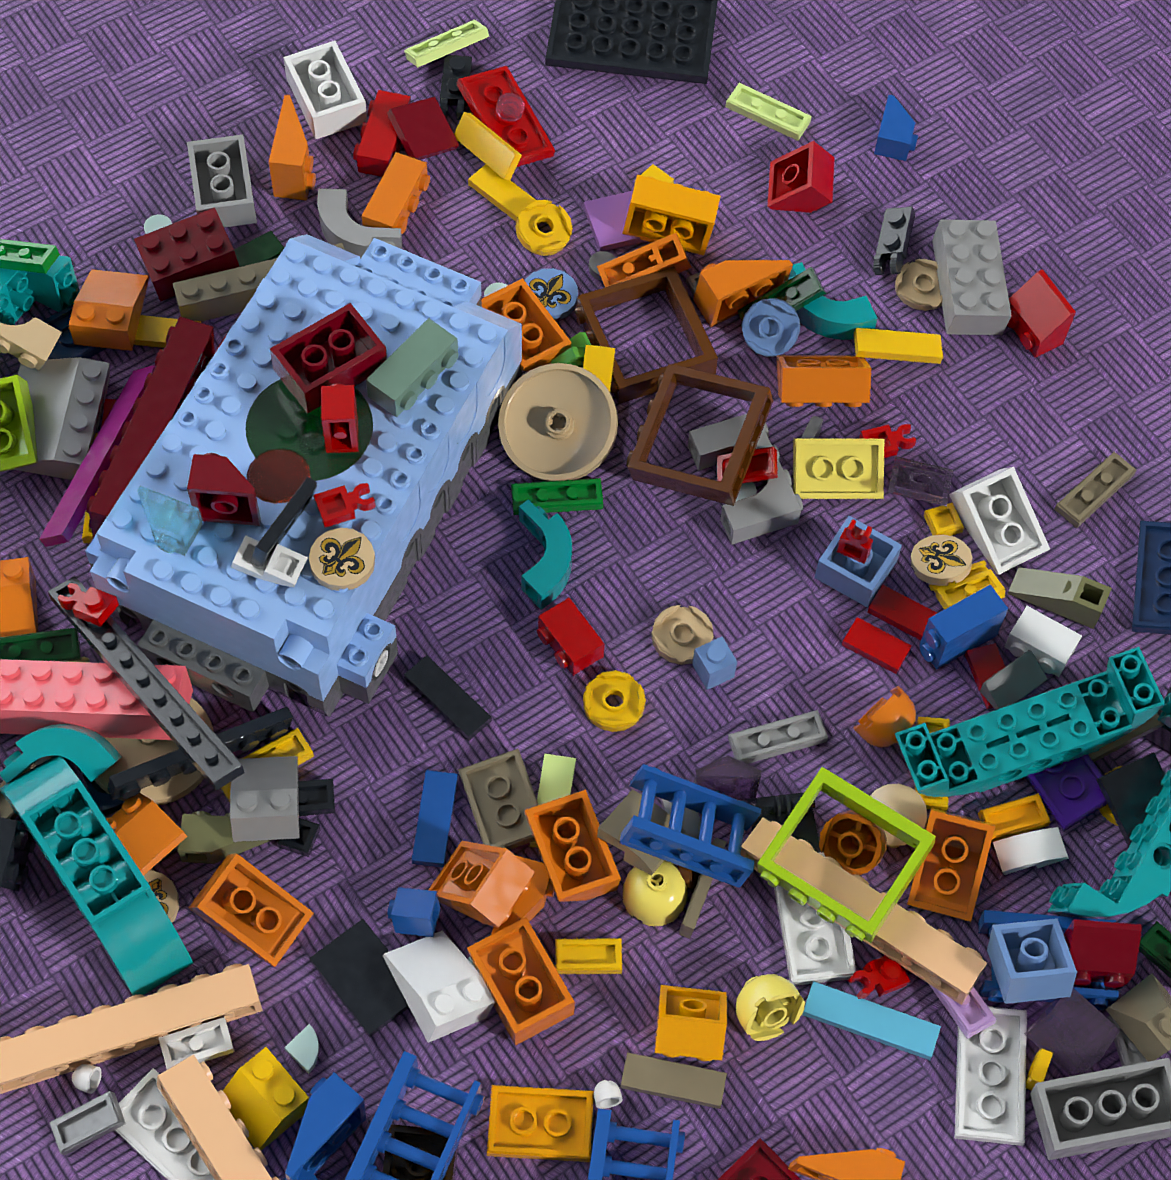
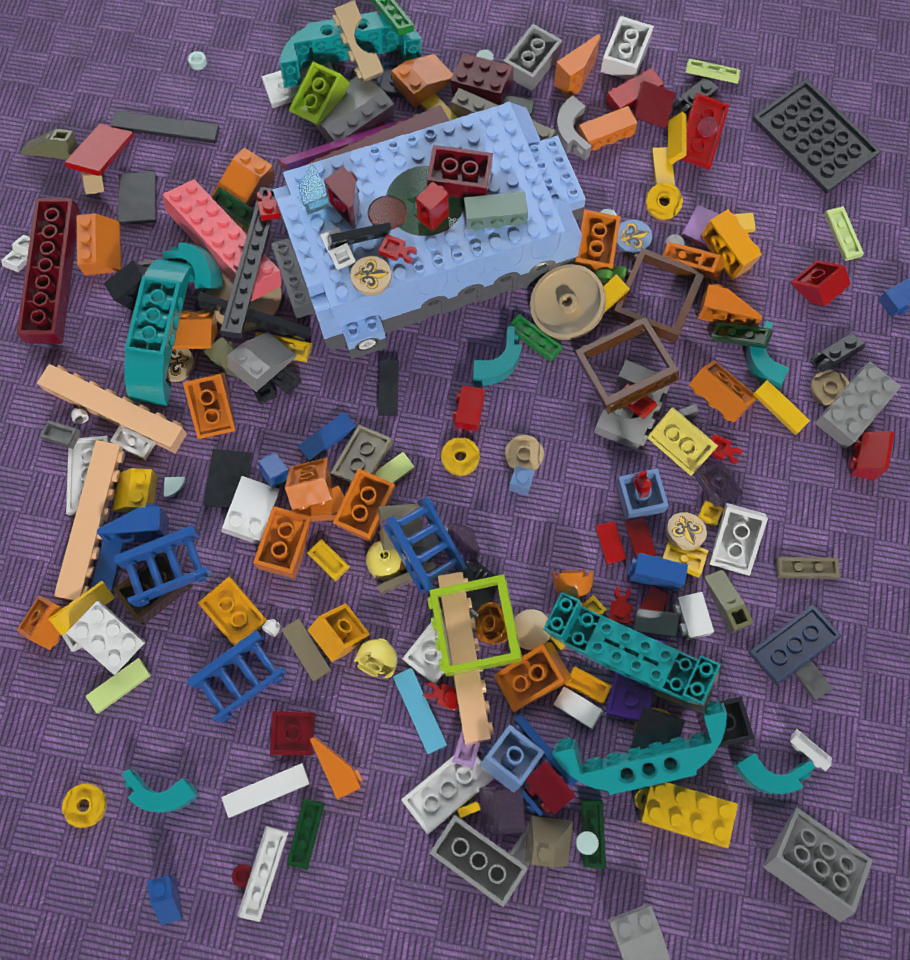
camera: 50 degrees right, 10 degrees up
(771, 327) = (723, 343): medium blue tile -> none
(778, 737) = (516, 542): light grey tile -> none
(958, 705) = (620, 610): none -> red plate

